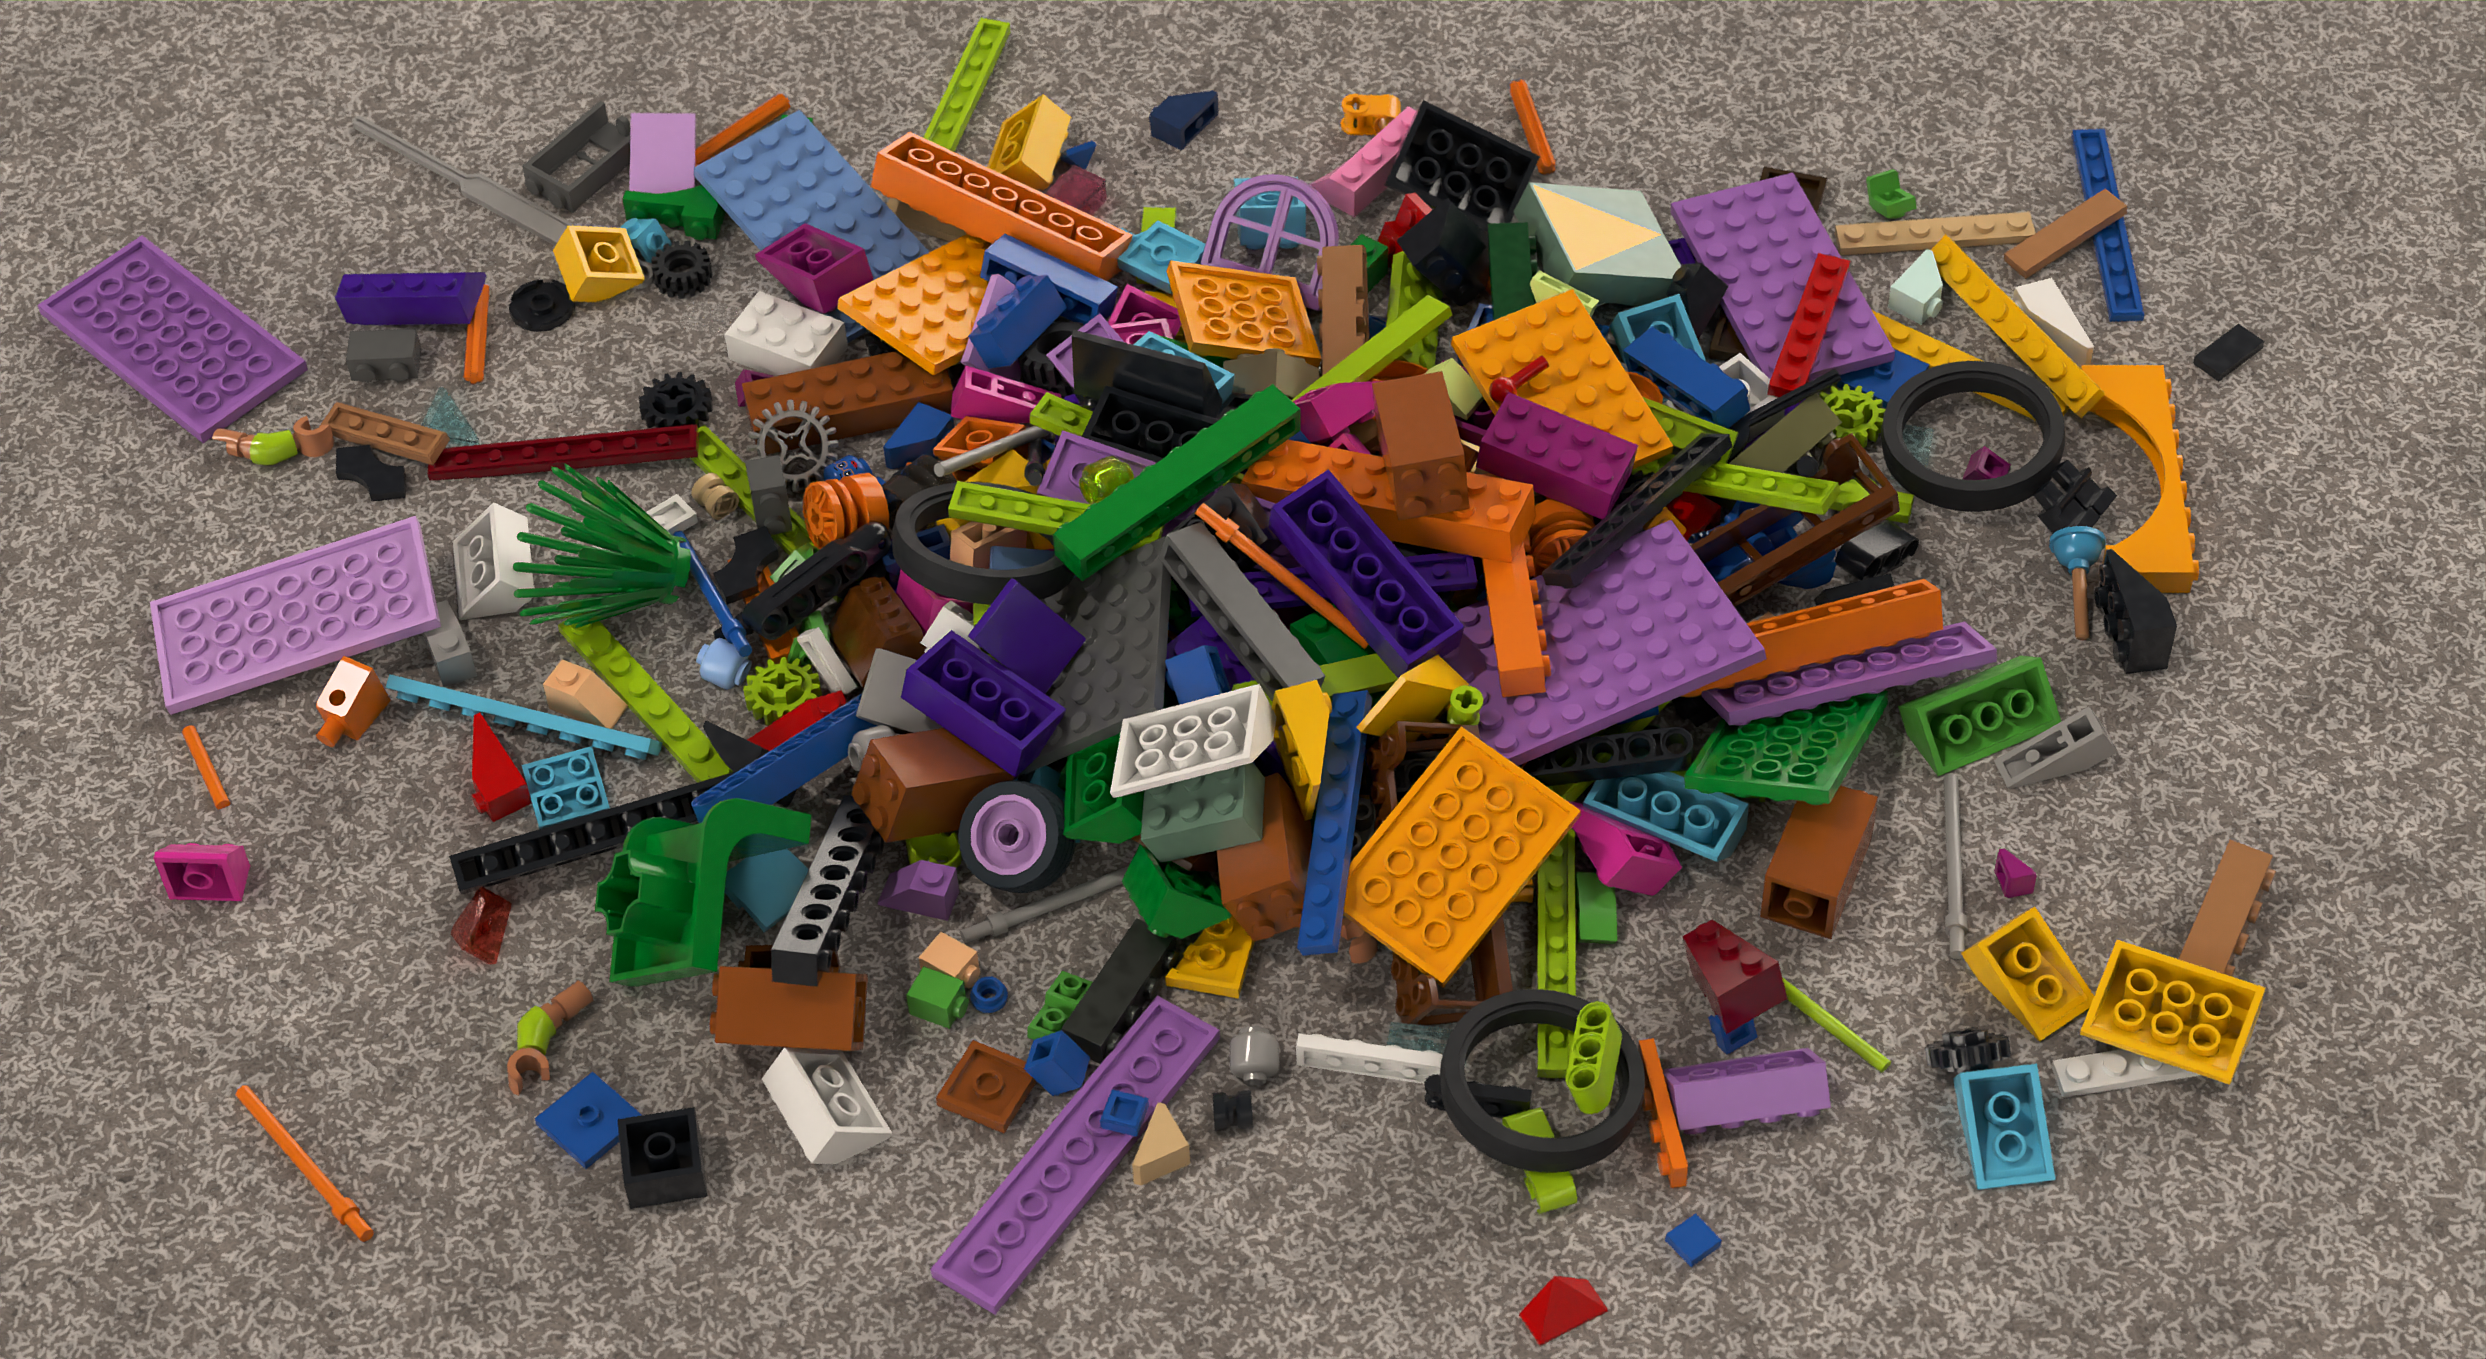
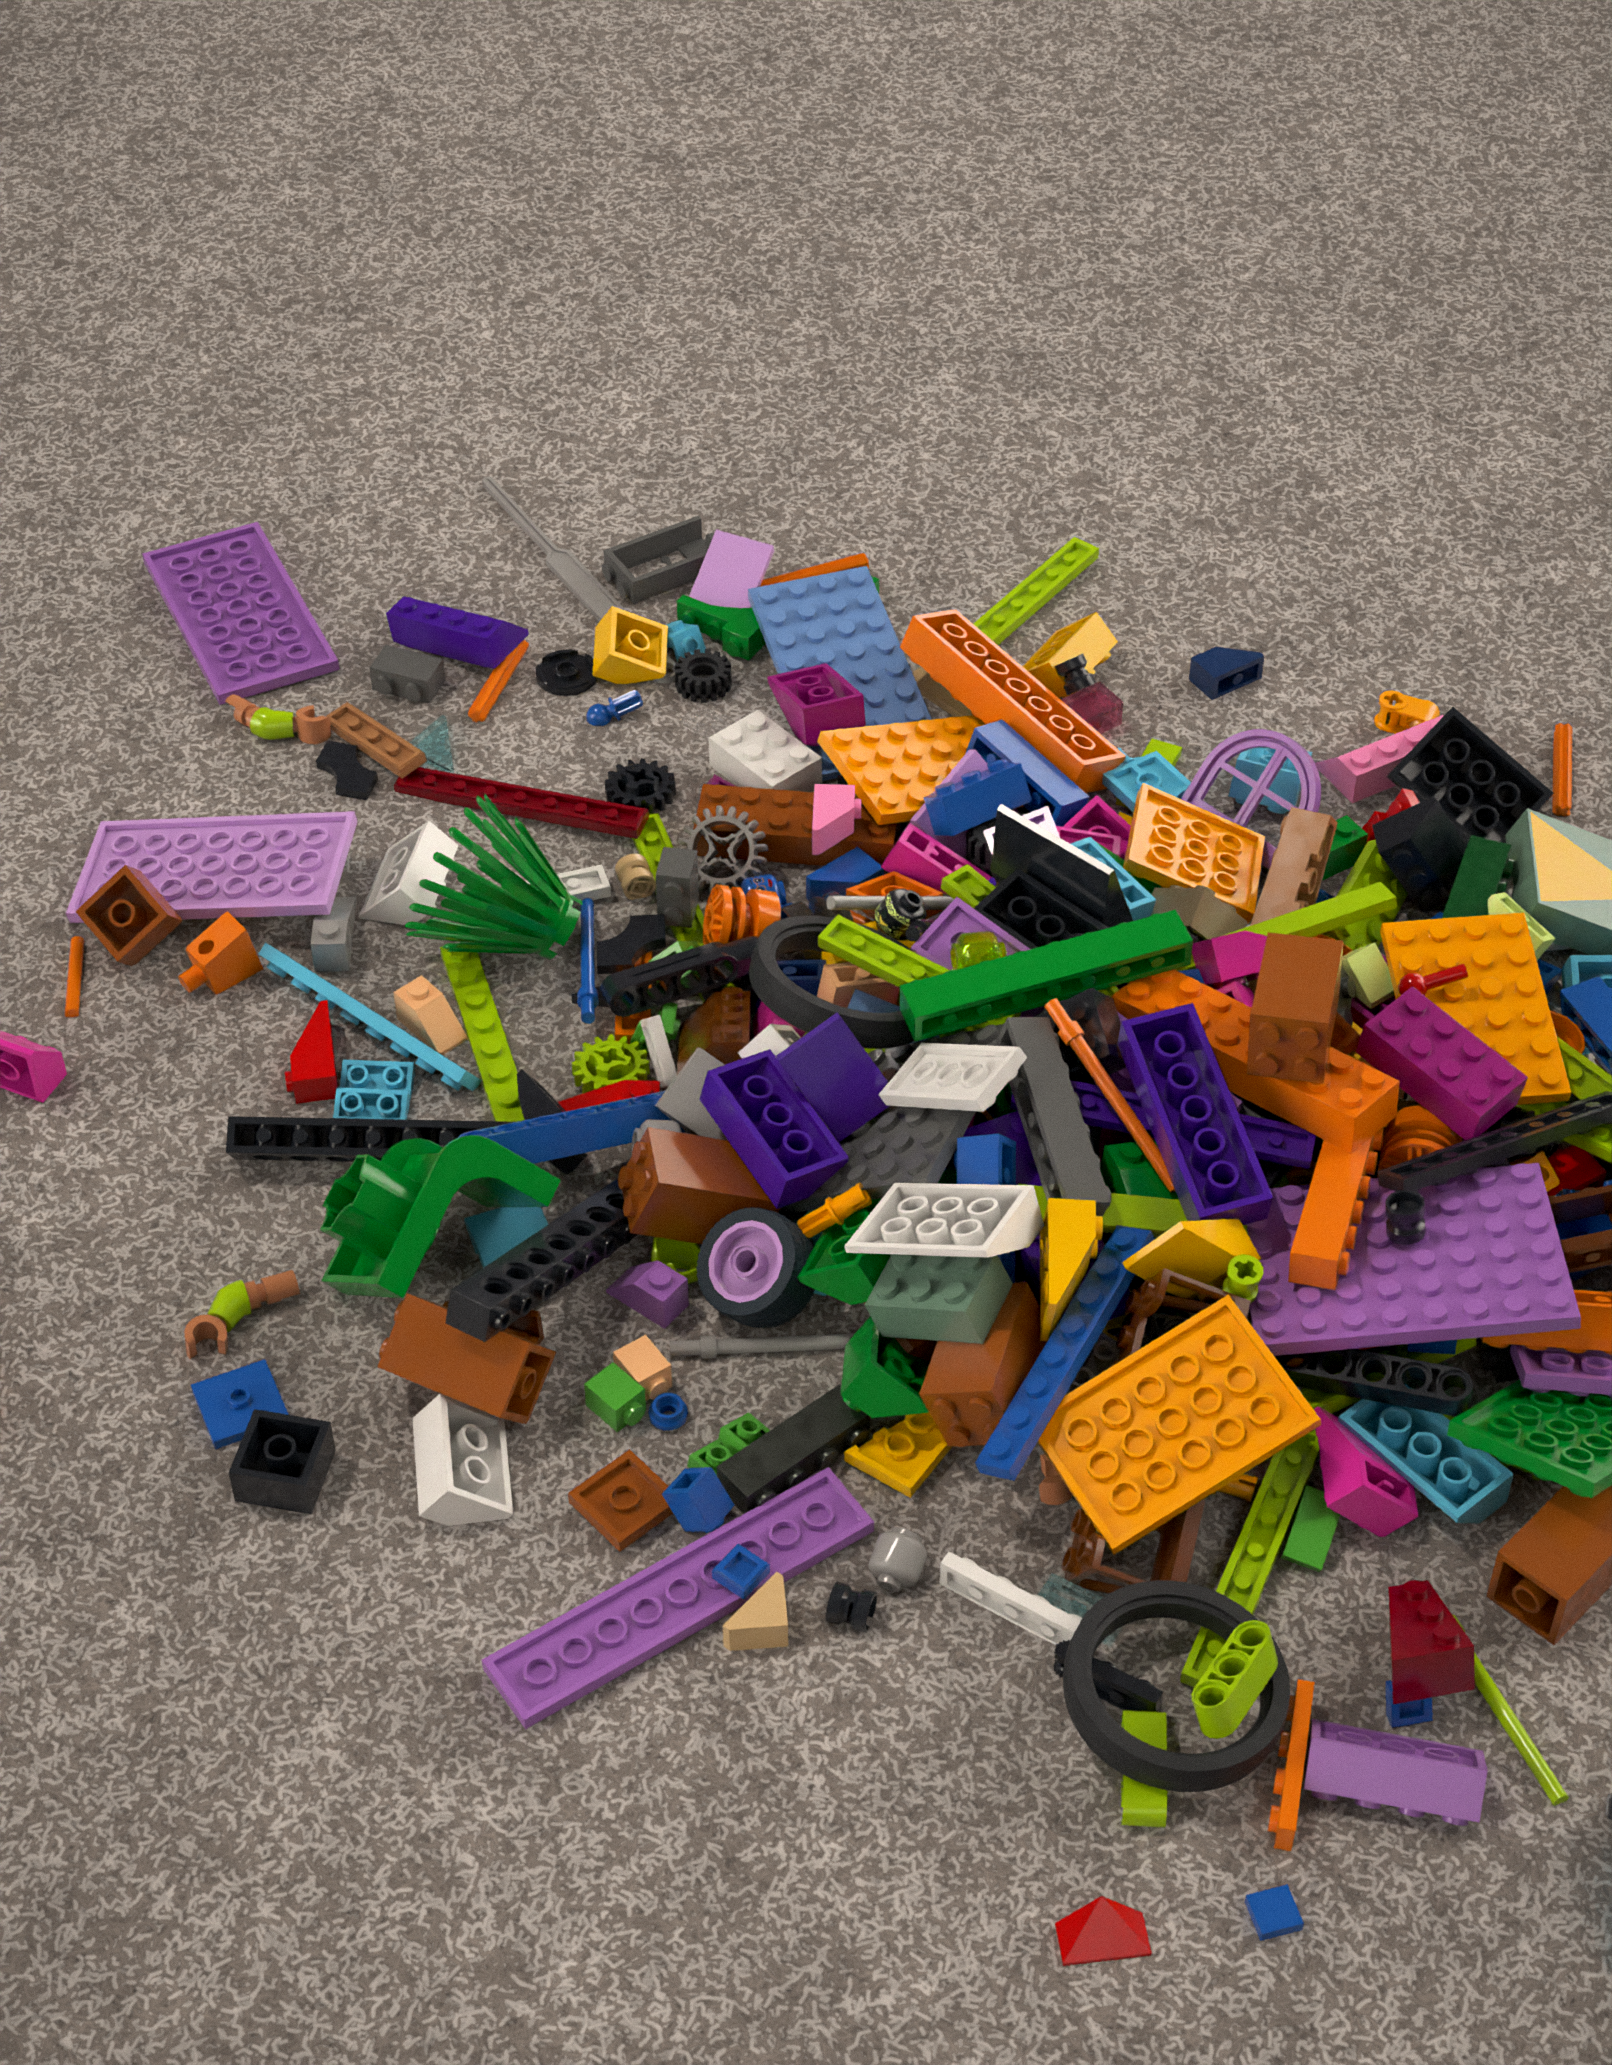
camera: 20 degrees right, 5 degrees down
(240, 690) = (129, 916): none -> dark orange brick
(482, 925) = (237, 1193): clear red slope -> none
(598, 339) = (601, 714): none -> blue axle
(722, 664) = (566, 1028): light blue head -> none
(887, 378) = (833, 815): none -> bright pink slope
(1004, 460) = (898, 912): none -> black head
(1050, 165) = (1075, 674): none -> black wheel
(1072, 762) = (835, 1210): none -> light orange axle
(1079, 155) = (1112, 676): blue slope -> none
(1137, 604) = (953, 1076): none -> white plate
(1581, 607) = (1405, 1217): none -> black wheel

